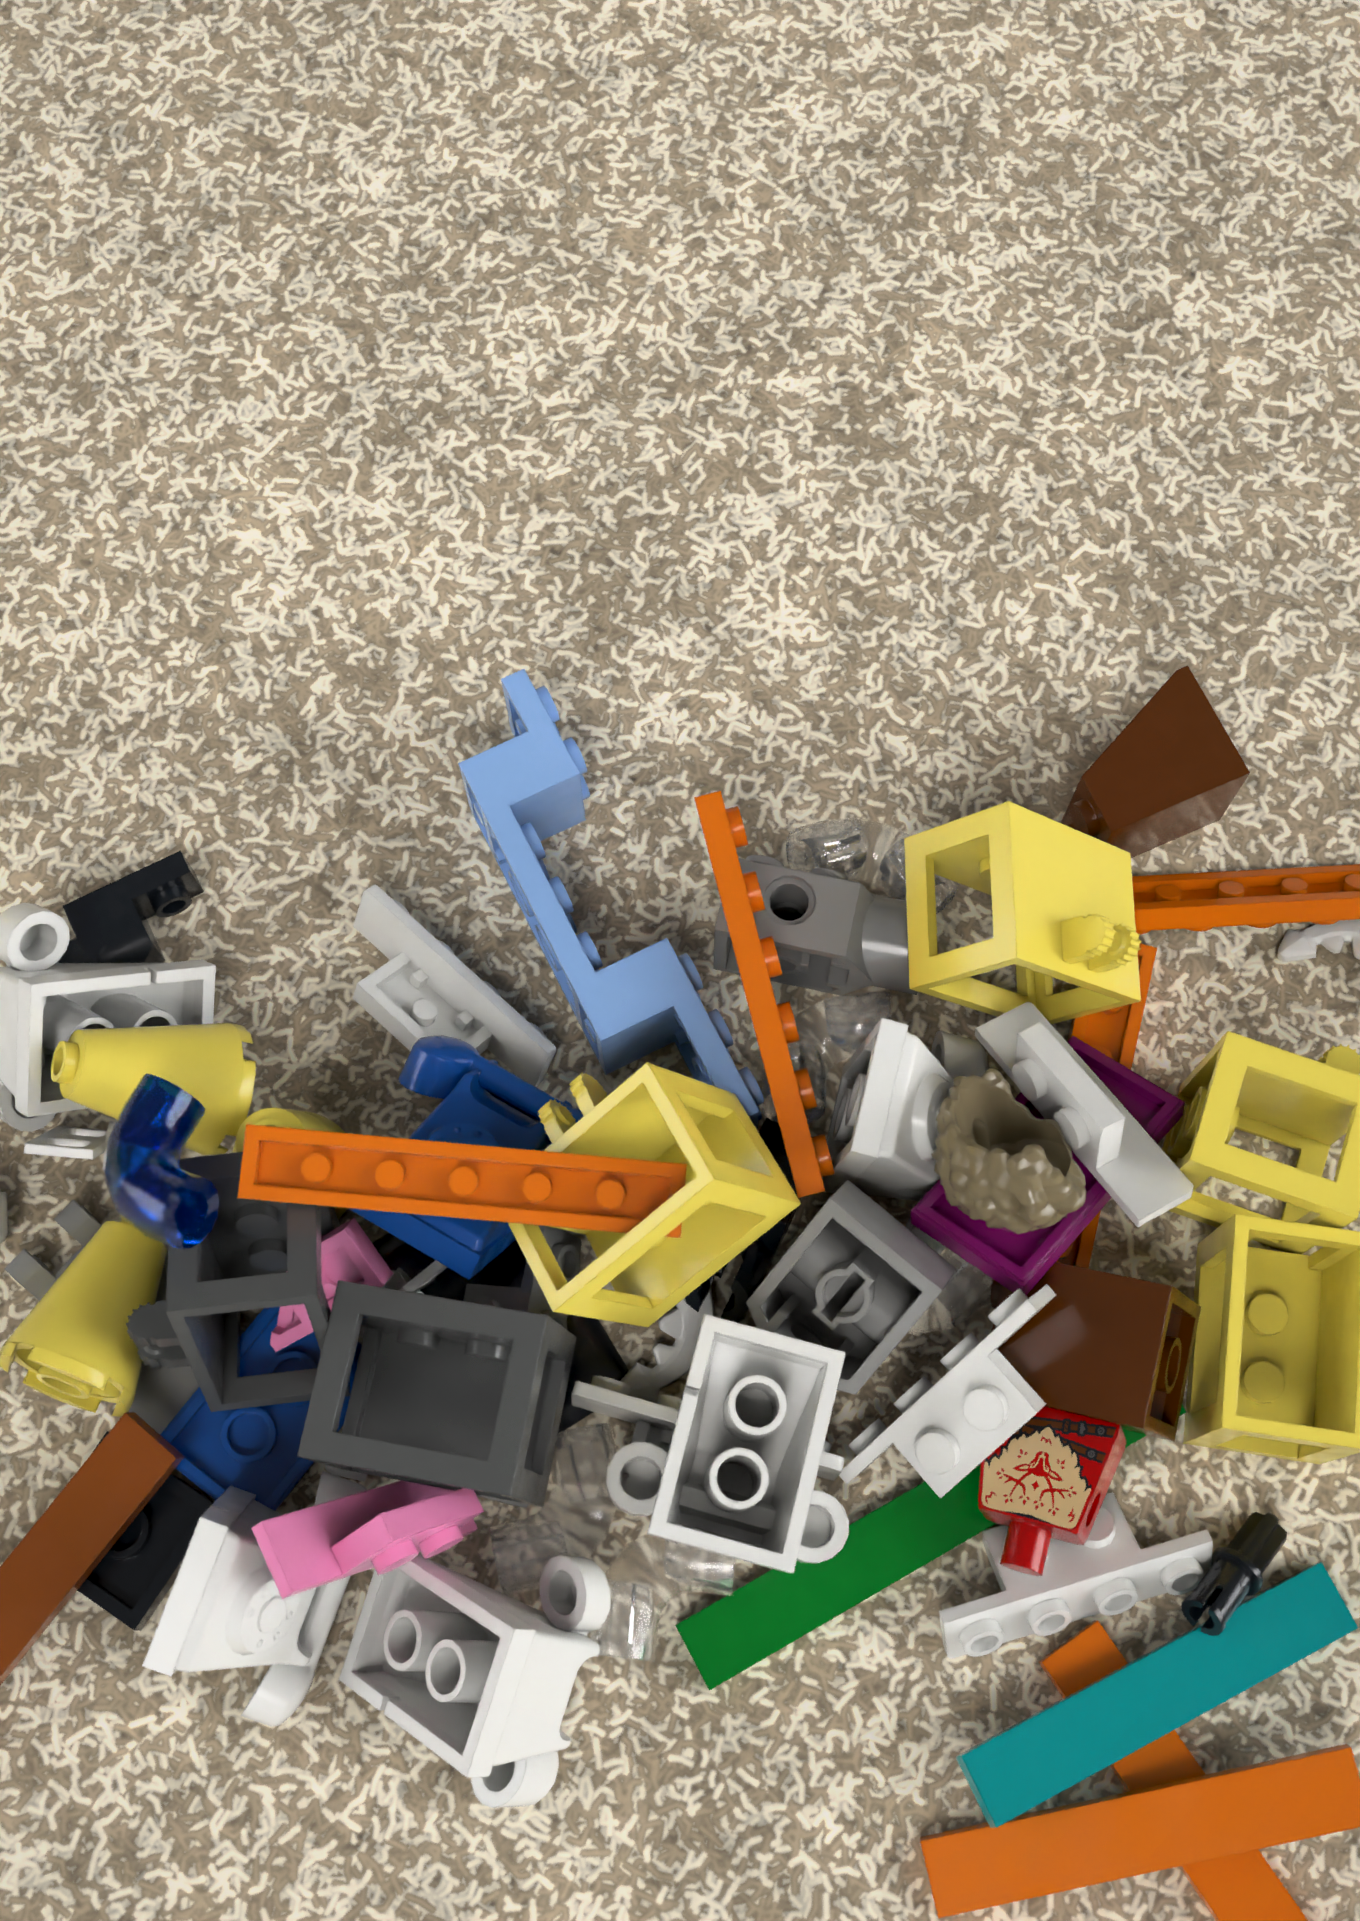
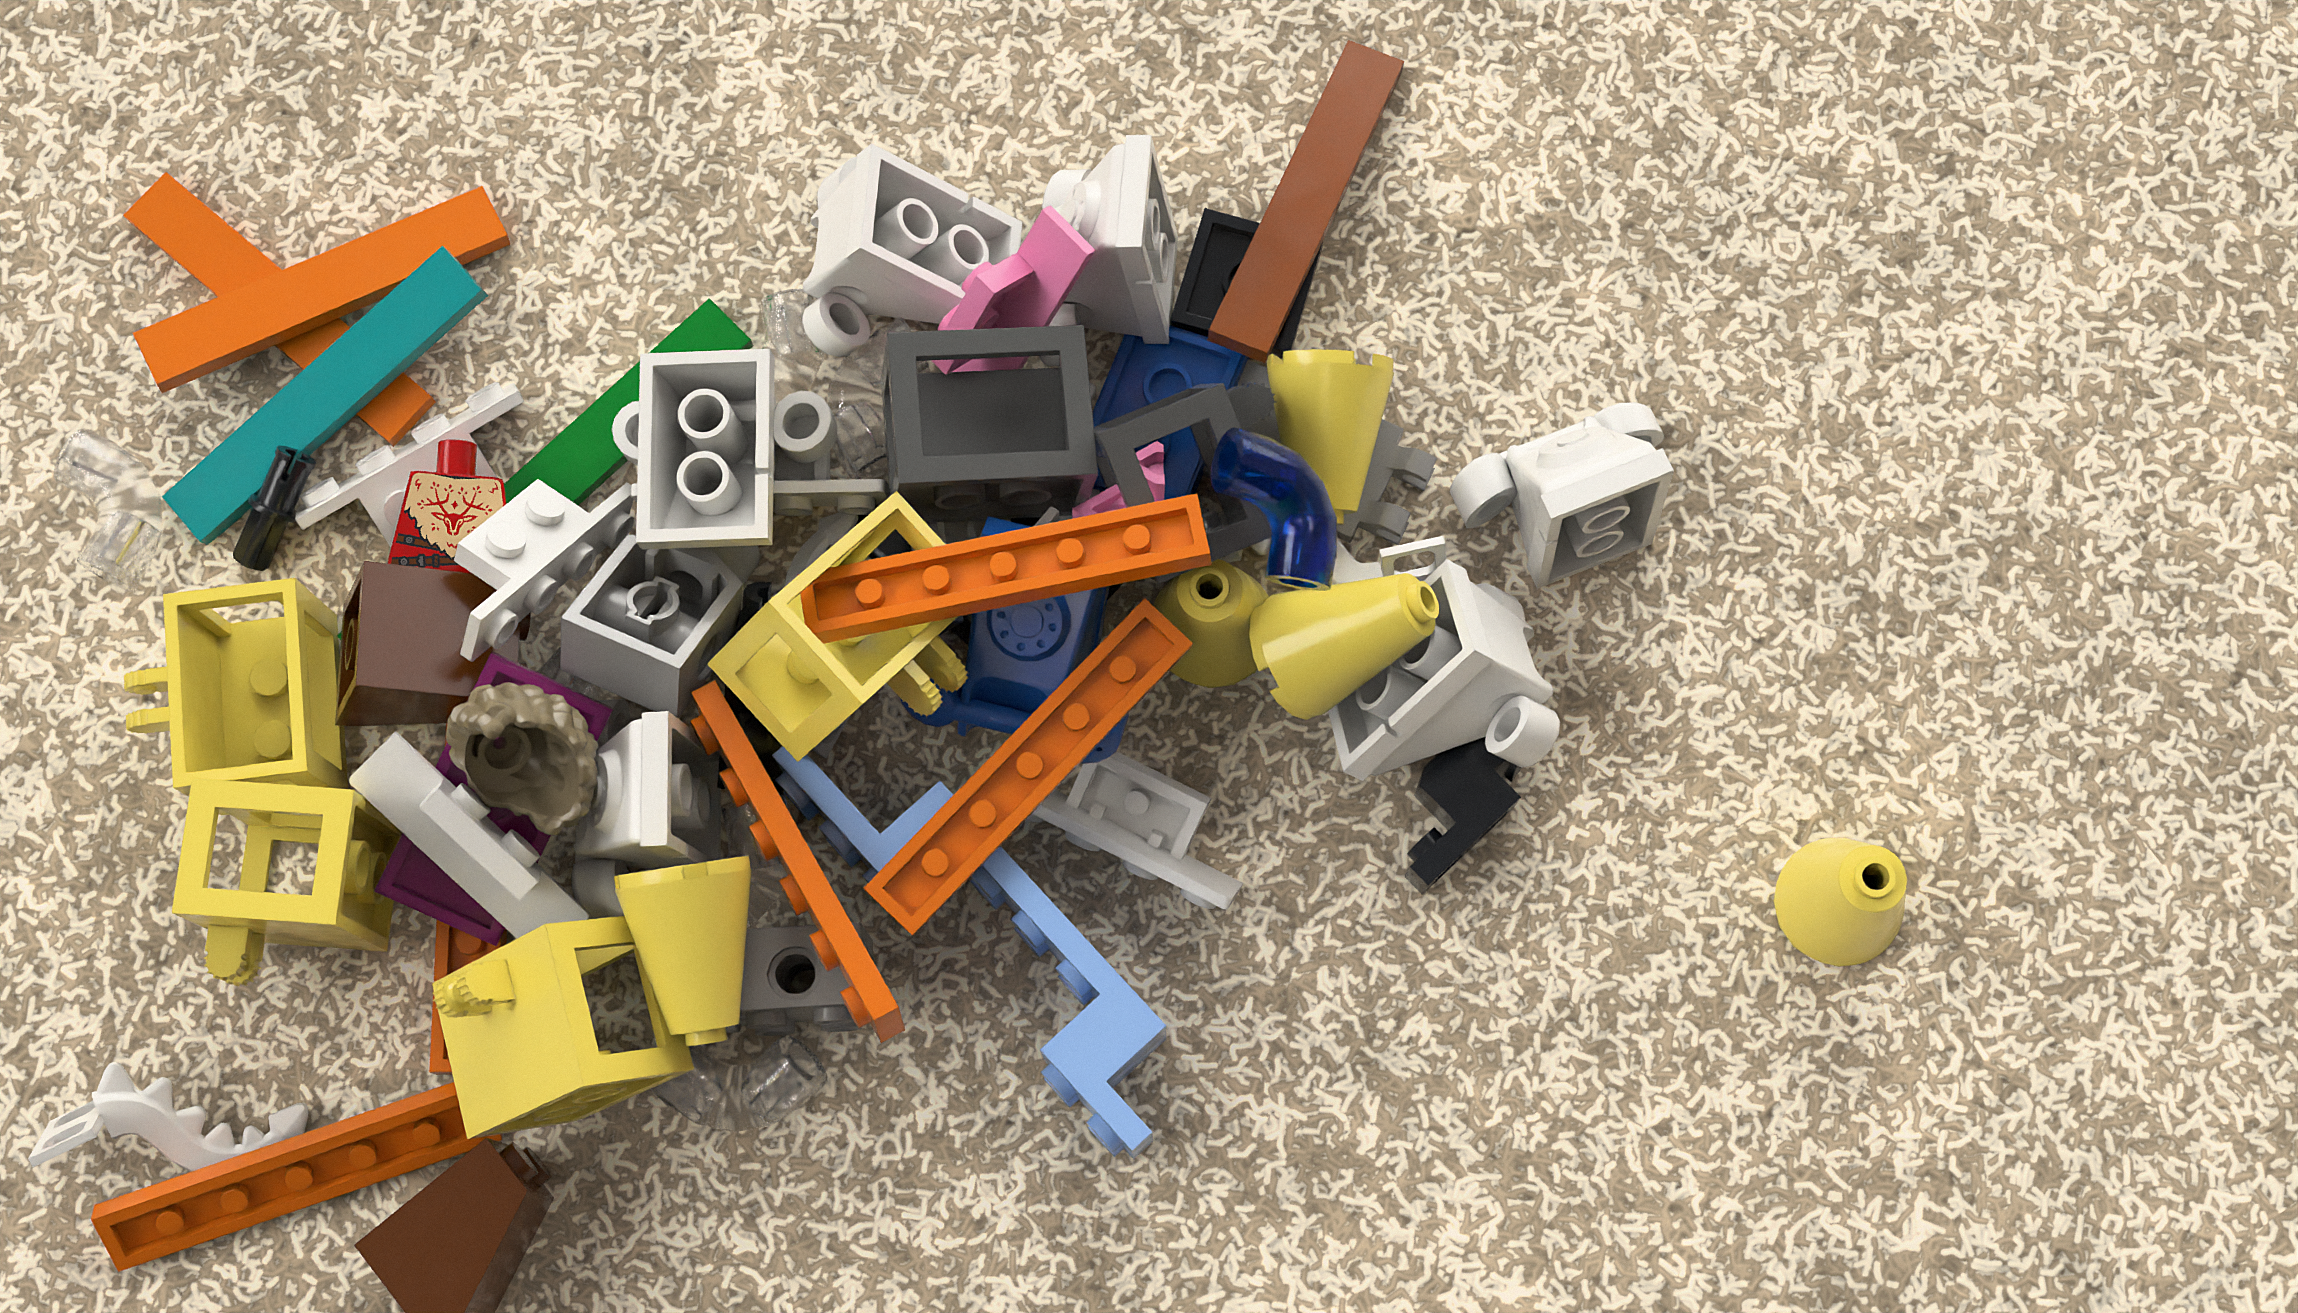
camera: 165 degrees right, 5 degrees up
(505, 1015) = (1028, 767): none -> orange plate
(877, 944) = (692, 941): none -> light yellow cone

